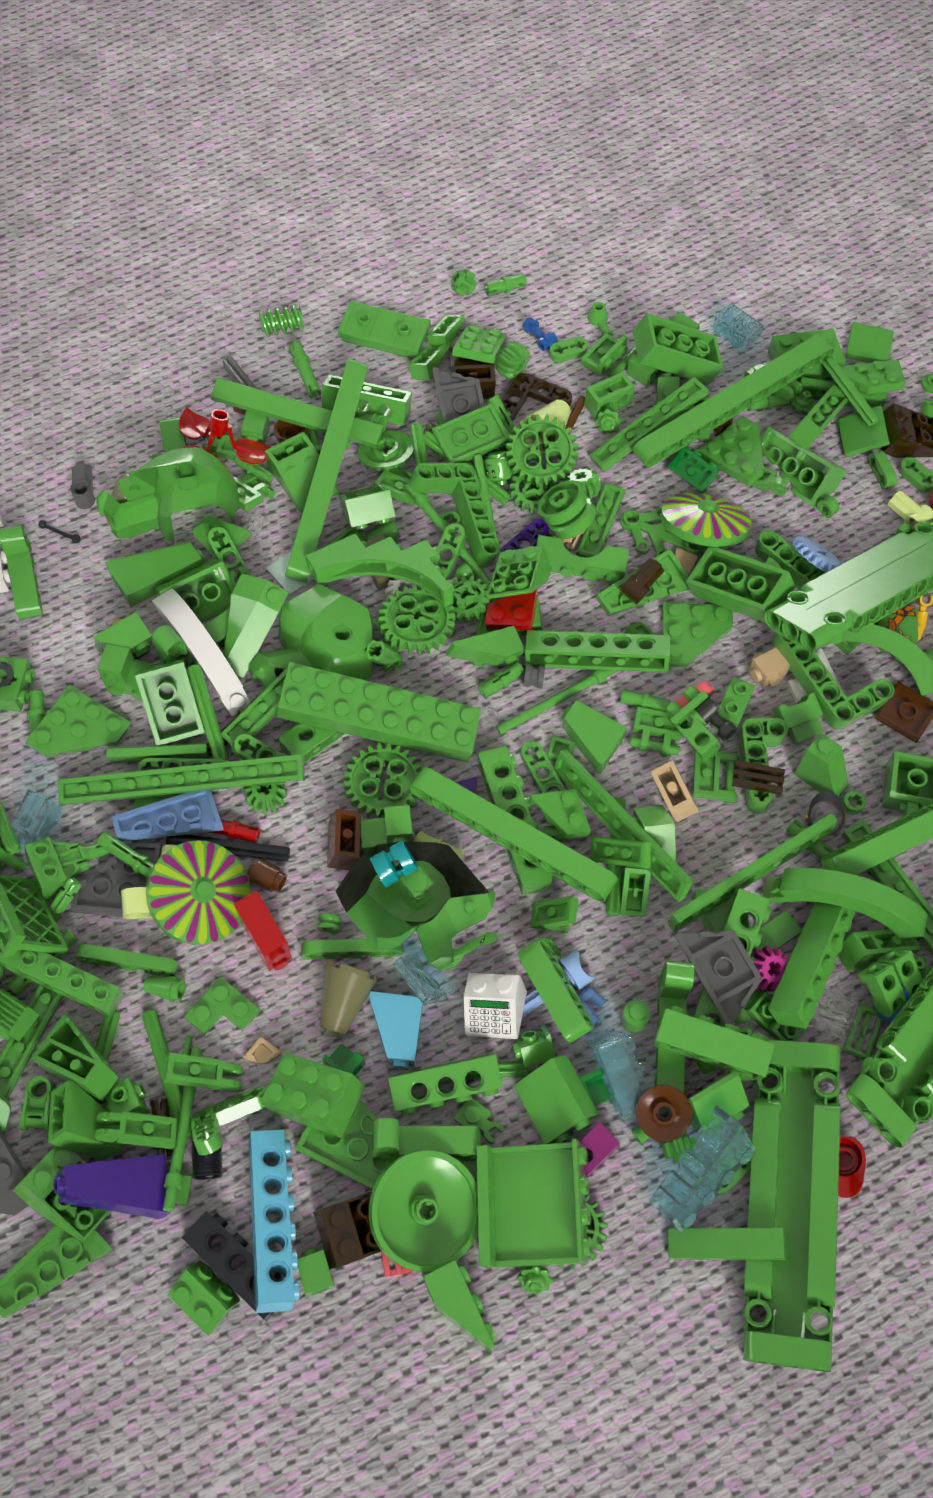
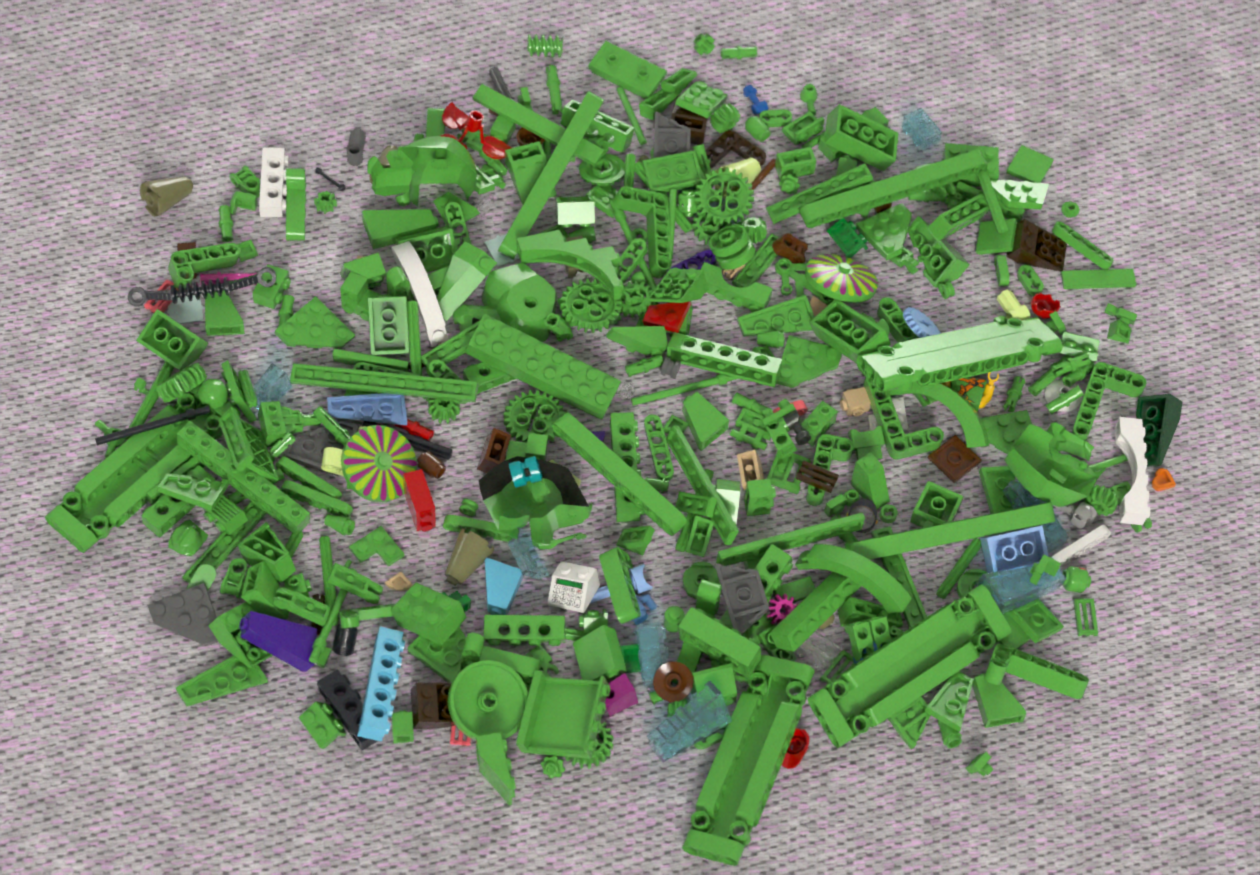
camera: 10 degrees right, 5 degrees down
(58, 561) = (325, 202): none -> bright green gear
(109, 934) = (307, 478): none -> bright green beam
(154, 537) = (403, 199): none -> bright green hinge
(272, 384) = (524, 98): none -> bright green plate
(402, 380) = (630, 113): none -> bright green bar
(552, 365) = (757, 128): none -> bright green brick
(564, 812) = (662, 468): bright green wing -> none
(634, 496) = (790, 248): none -> reddish brown piece
(639, 584) = (770, 317): dark brown piece -> none
(640, 945) = (693, 575): none -> bright green plate
(644, 612) = (771, 339): none -> bright green cone
(694, 821) = (759, 497): none -> bright green brick
(727, 1244) = (692, 774): bright green tile -> none
(802, 794) = (837, 504): none -> bright green plate

